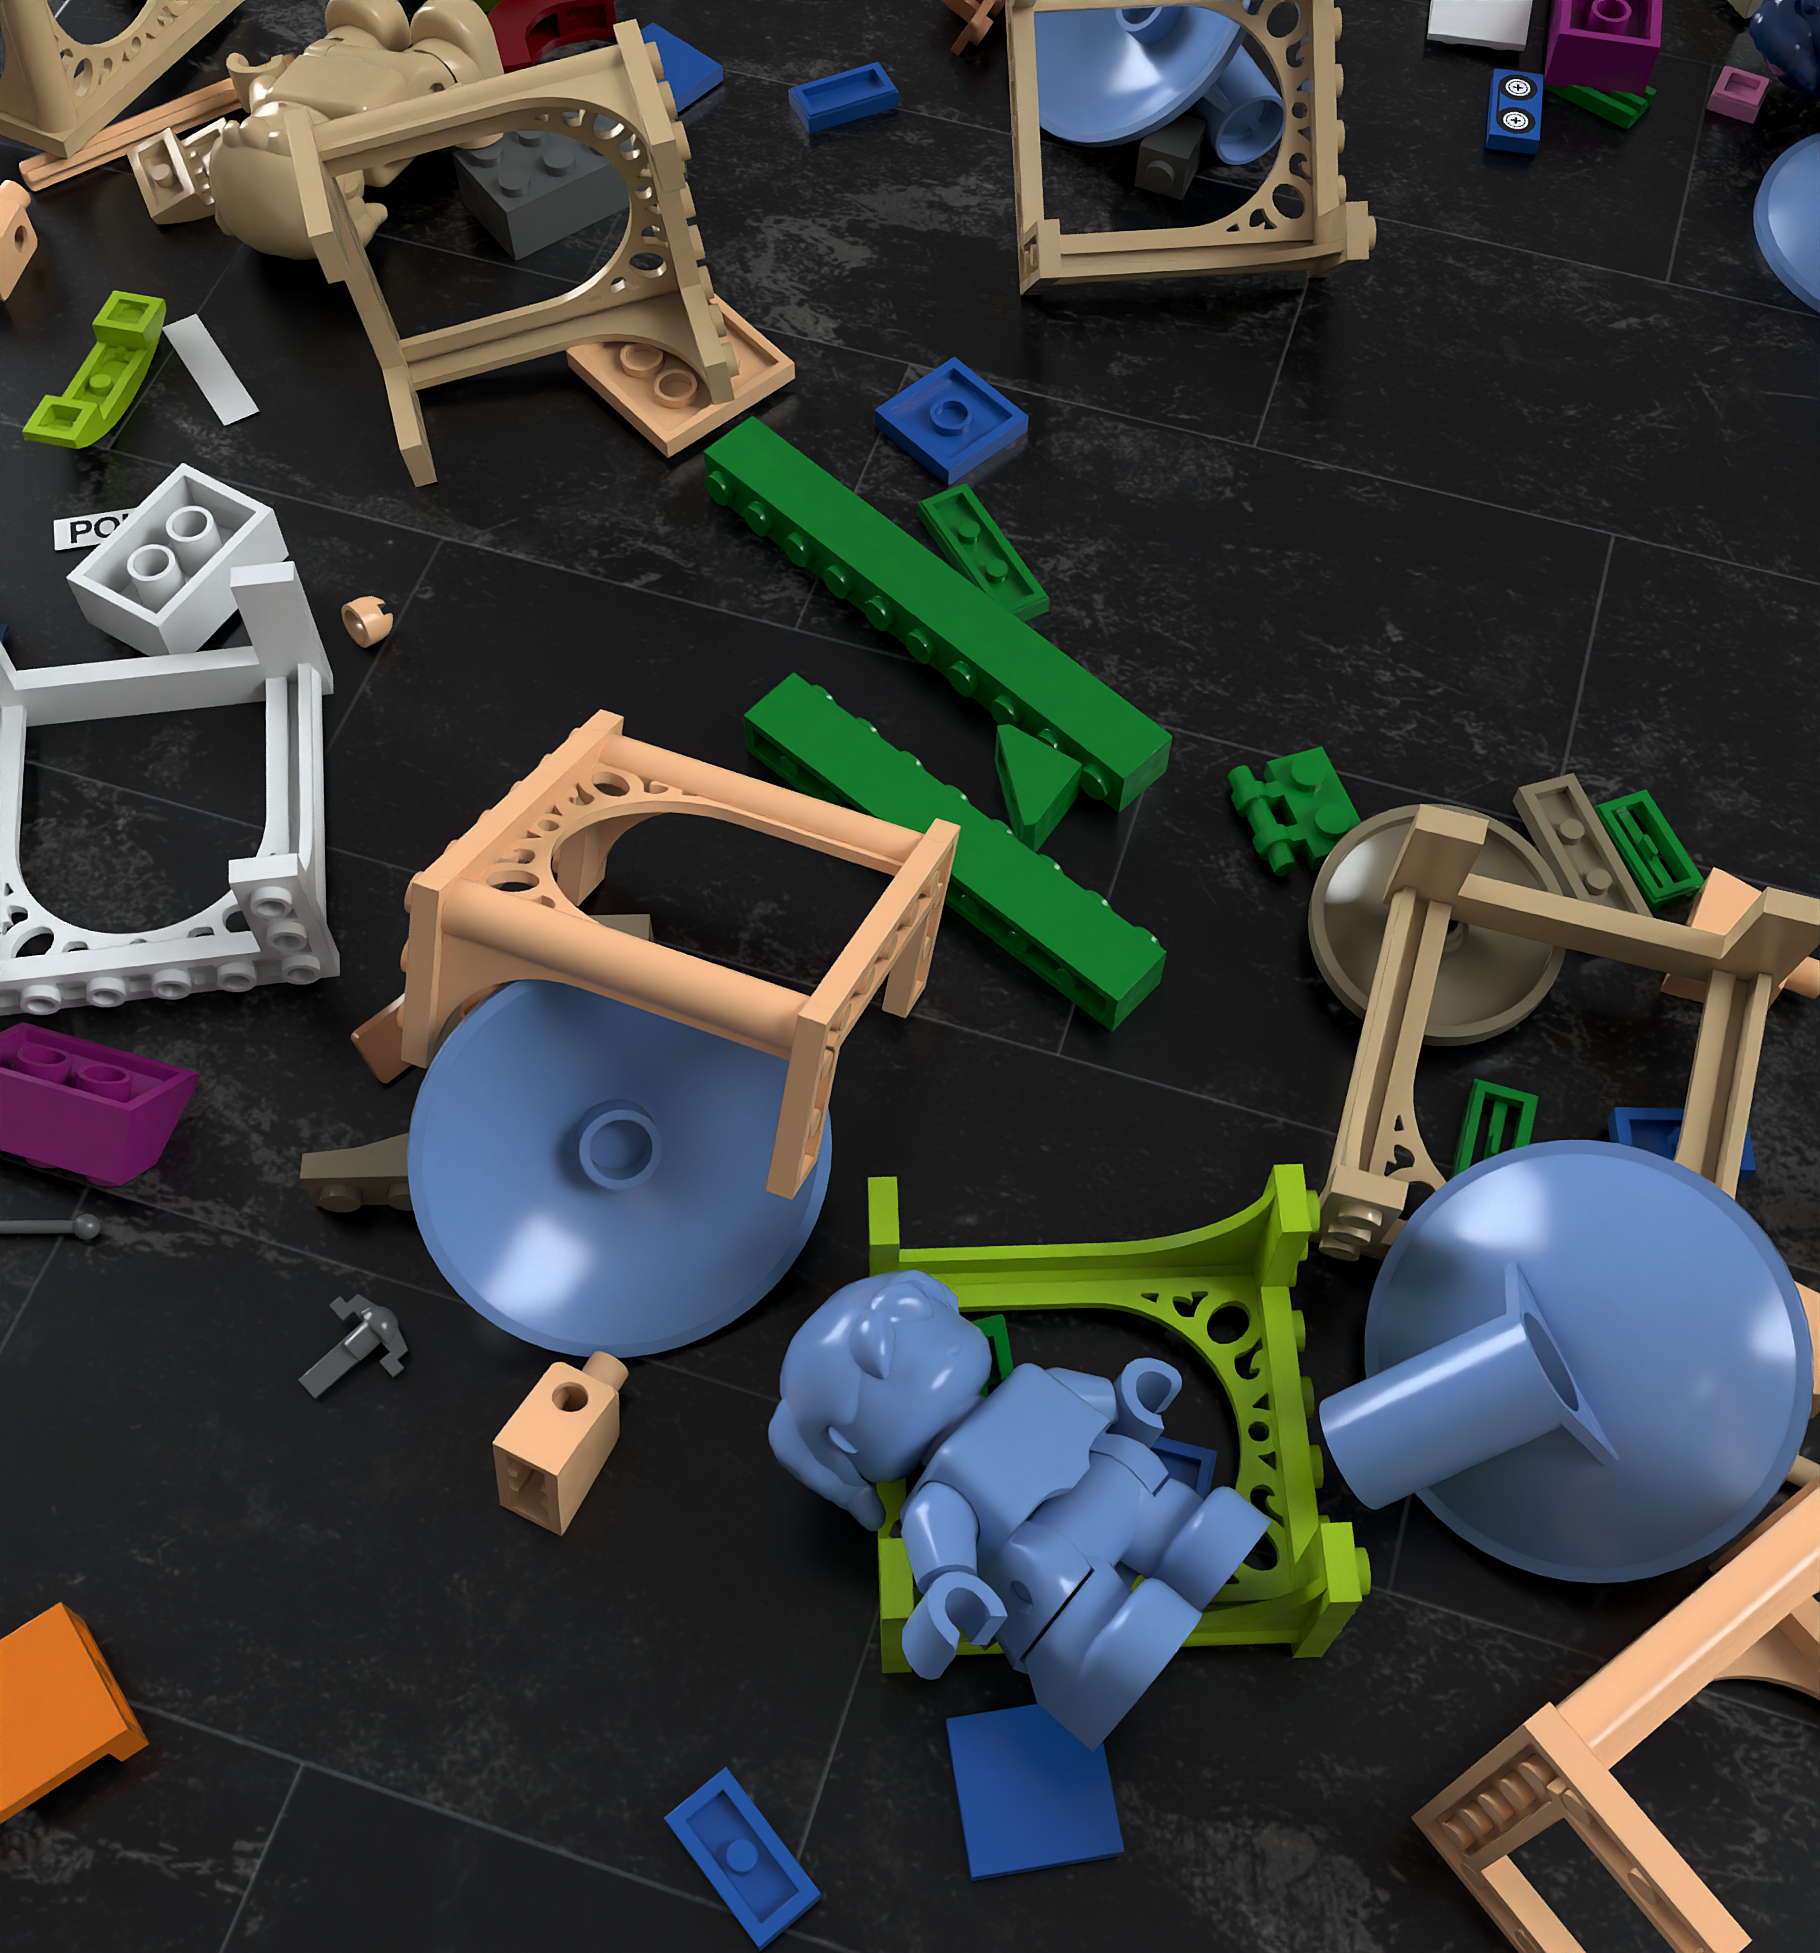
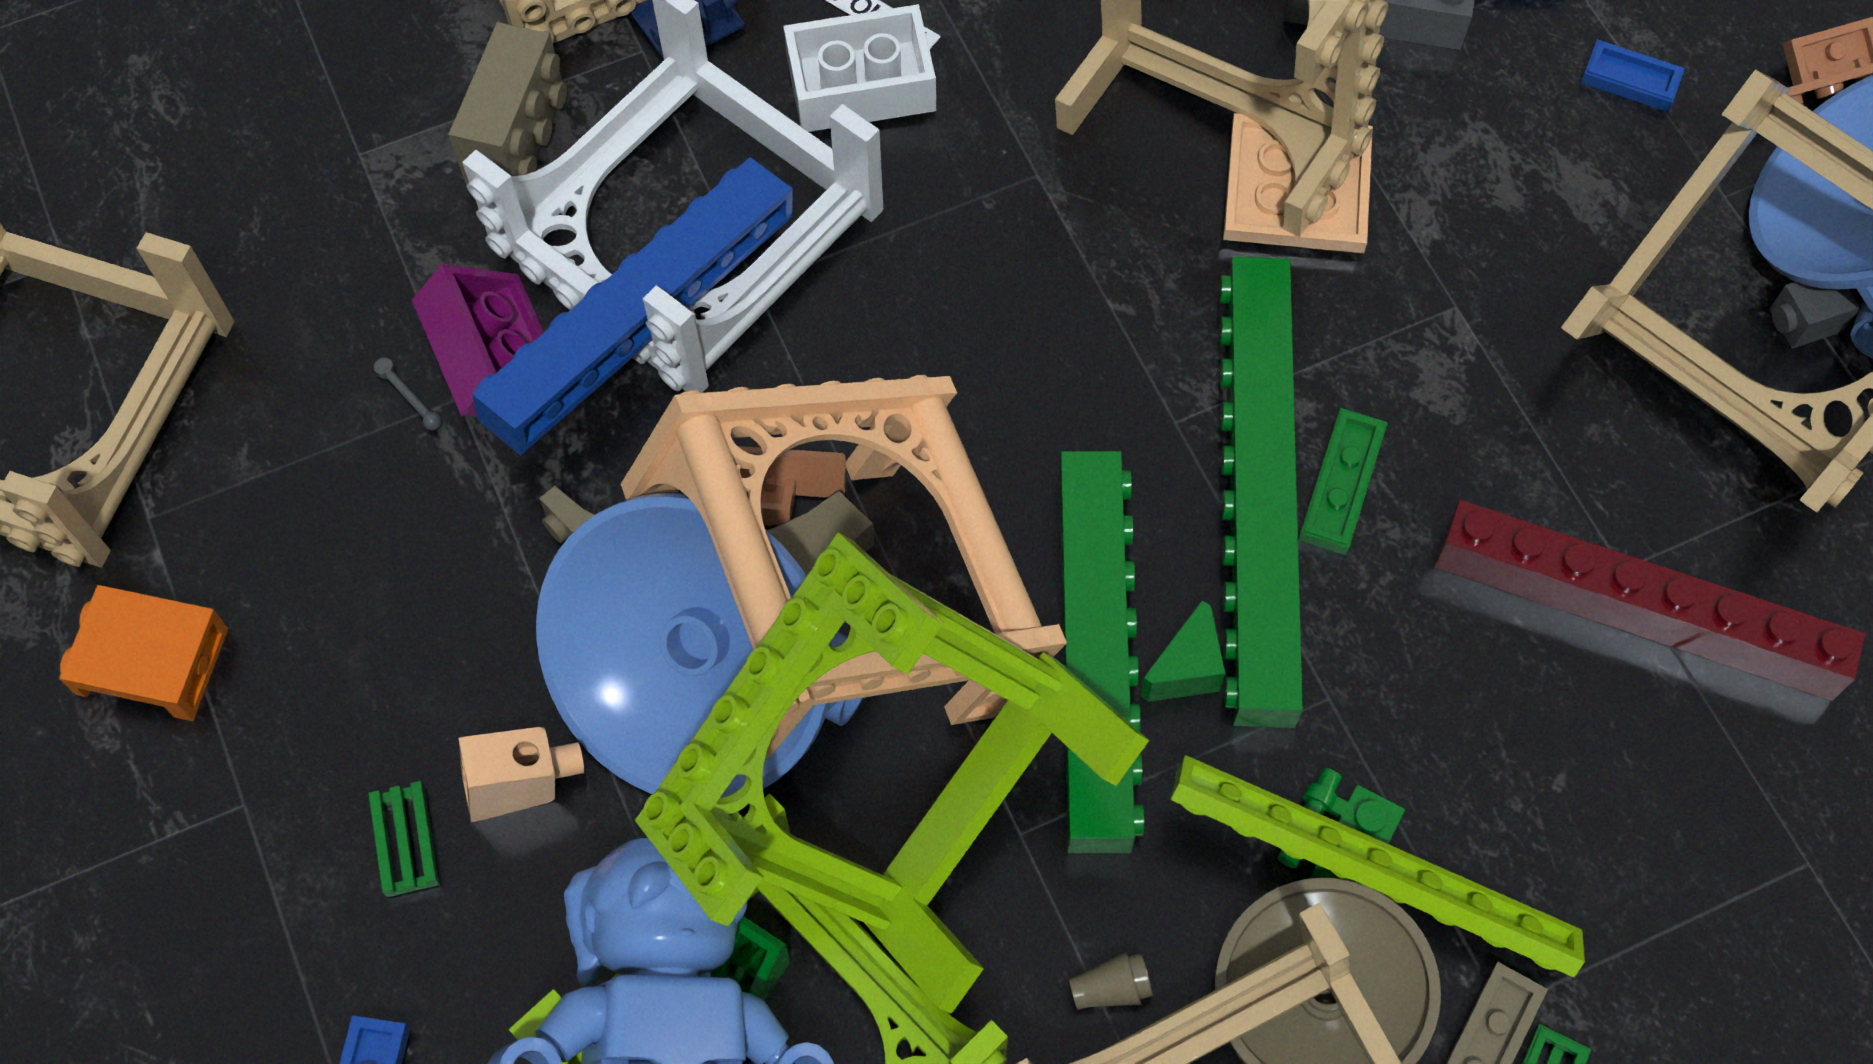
camera: 50 degrees right, 5 degrees up
(199, 936) = (610, 322): none -> blue brick
(366, 621) = (930, 191): light nougat hinge -> none
(377, 1326) = (501, 618): dark grey piece -> none
(463, 1585) = (396, 798): none -> green tile
(925, 849) = (728, 855): none -> lime arch
(951, 421) = (1432, 371): blue tile -> none
(1275, 1085) = (1113, 983): none -> dark tan cone
(1299, 445) = (1650, 601): none -> dark red brick
(1343, 802) = (1379, 866): none -> lime plate

